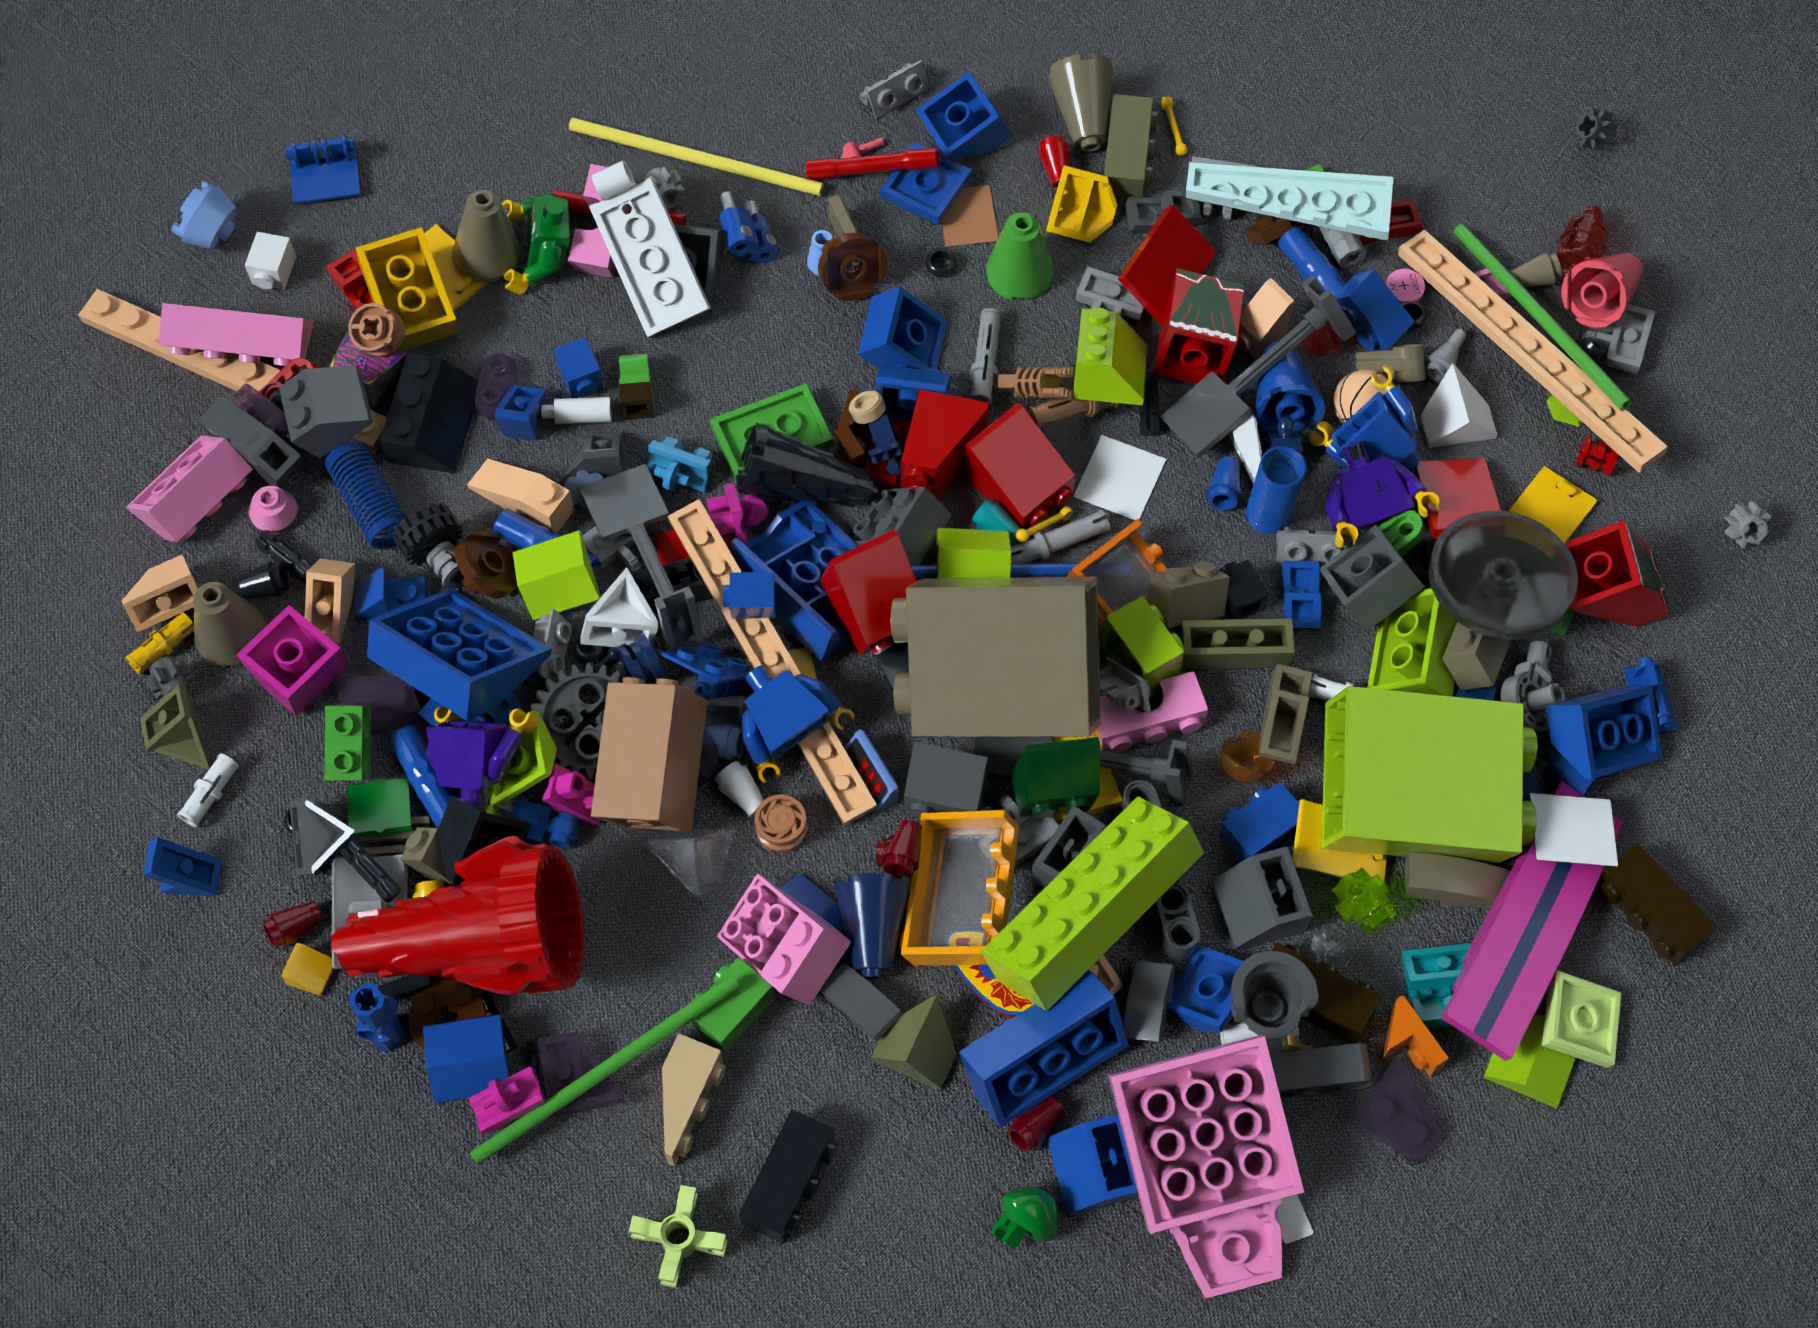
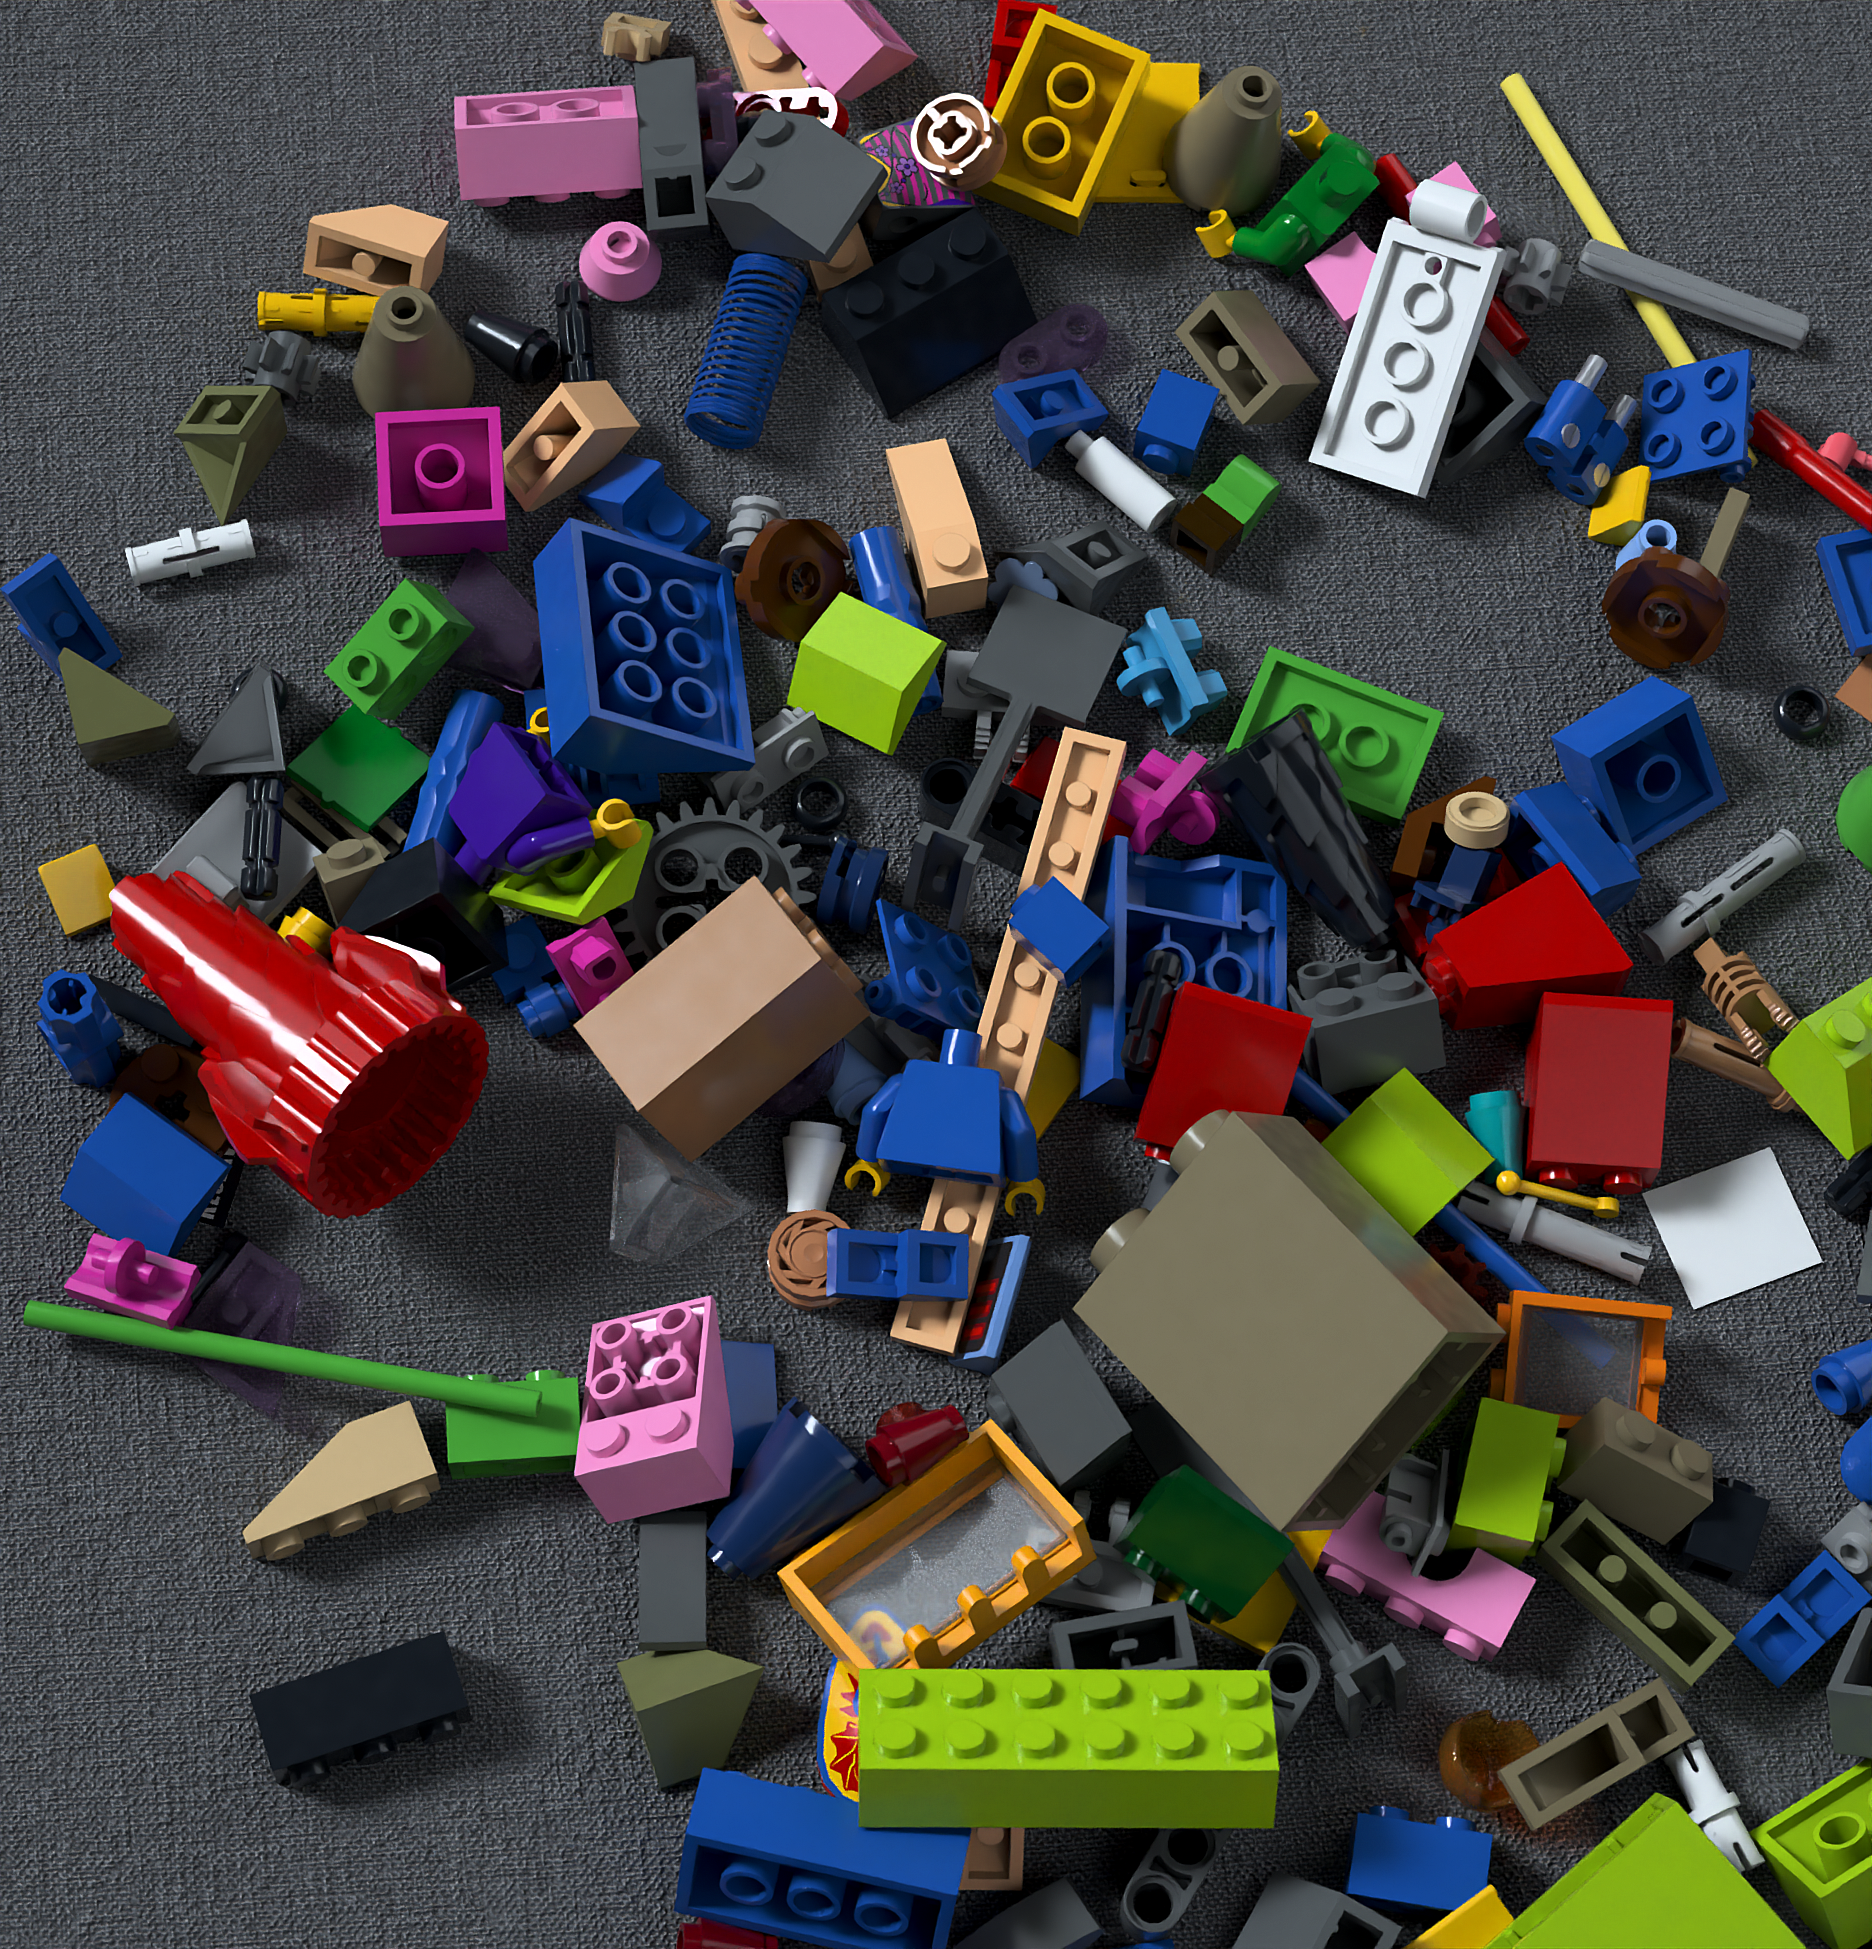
camera: 40 degrees right, 5 degrees up
(183, 413) = (634, 37): none -> tan plate
(247, 881) = (111, 716): none -> olive slope
(291, 923) = (117, 814): dark red cone -> none
(426, 530) = (763, 464): black tyre -> none
(581, 316) = (1247, 357): none -> dark tan brick
(619, 616) = (882, 799): white slope -> none
(704, 1241) = (201, 1624): yellowish green pin -> none
(732, 141) = (1693, 294): none -> light grey axle
(785, 186) = (1698, 419): none -> blue hinge
(791, 245) = (1620, 507): none -> yellow slope
(819, 594) = (1151, 1011): none -> black axle
(820, 790) = (897, 1265): none -> blue slope

